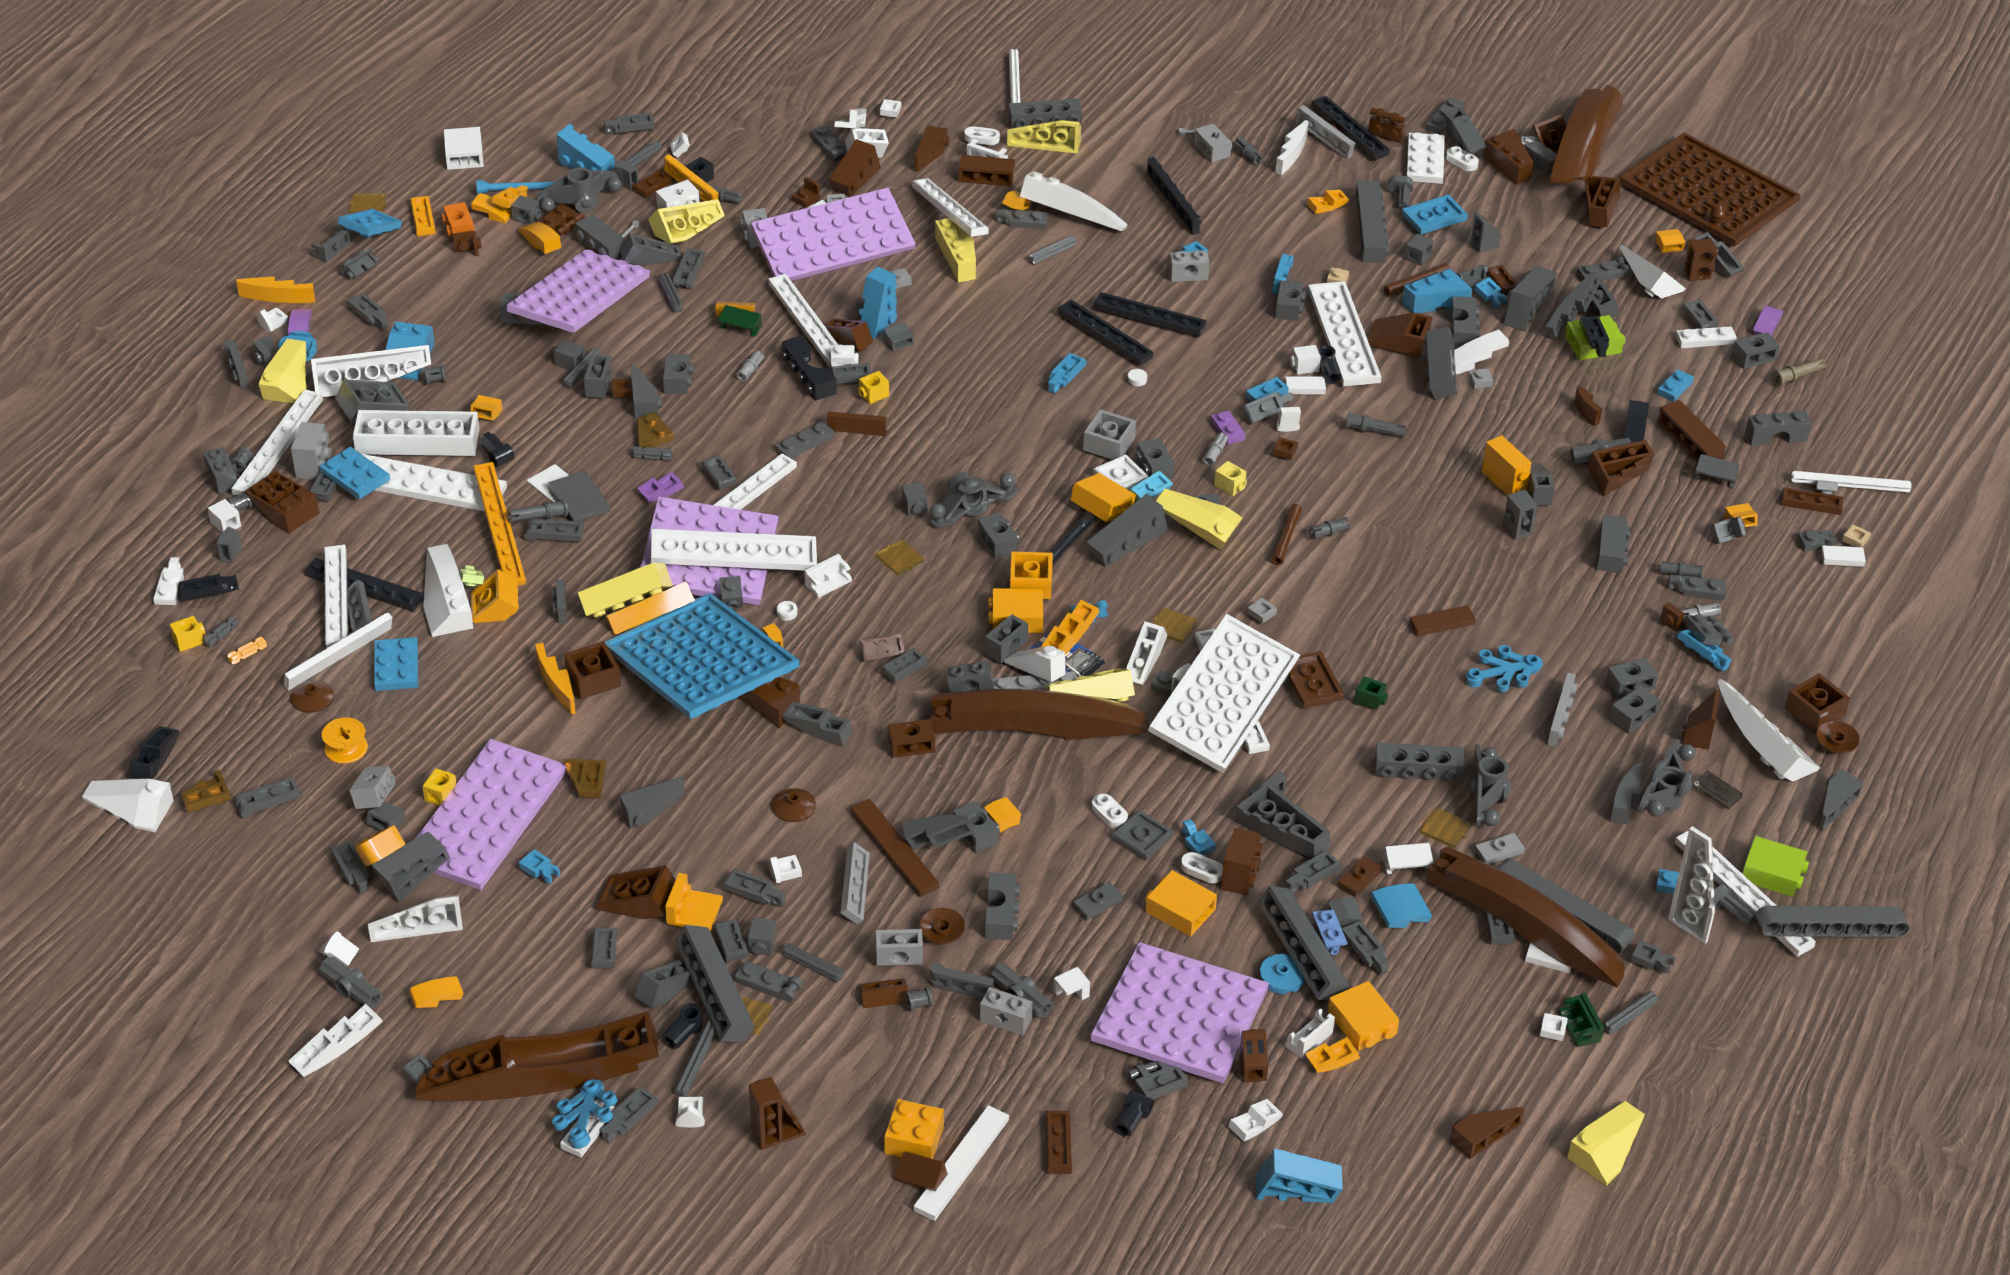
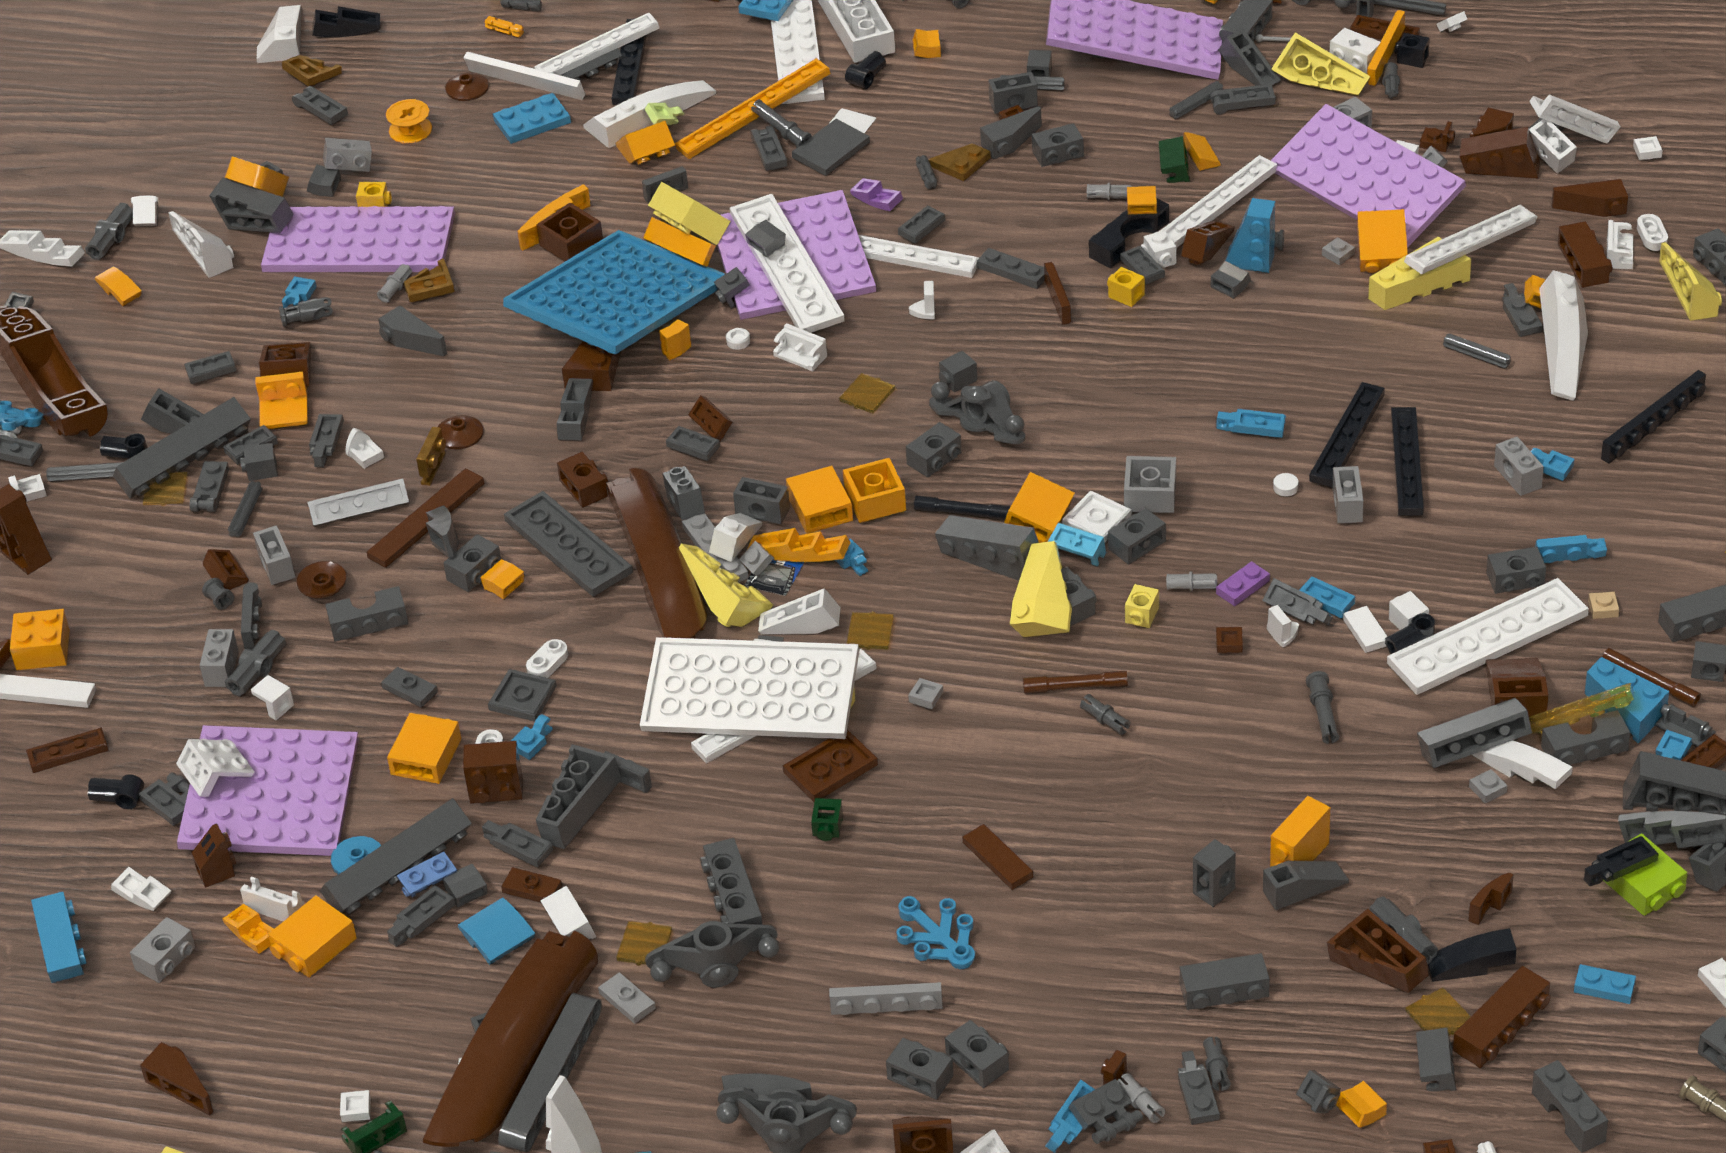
camera: 75 degrees right, 0 degrees up
(570, 868) = (306, 311): none -> dark grey piece
(571, 800) = (394, 283): none -> light grey axle
(708, 545) = (765, 238): none -> dark grey piece
(794, 343) = (1141, 200): none -> light orange piece
(818, 165) = (1493, 122): none -> reddish brown slope
(821, 492) = (925, 308): none -> white tile
(829, 821) = (431, 455): none -> pearl gold plate
(916, 249) = (1381, 238): none -> light orange brick
(981, 765) = (568, 543): none -> dark grey plate
(1071, 660) = (756, 558): none -> light grey plate
(1158, 1029) = (207, 759): none -> white bracket
(1176, 347) = (1347, 494): none -> light grey brick
(1338, 1114) = (162, 950): none -> light grey brick
(1448, 301) = (1592, 705): none -> clear yellow plate
(1672, 463) = (1437, 1012): none -> clear yellow piece

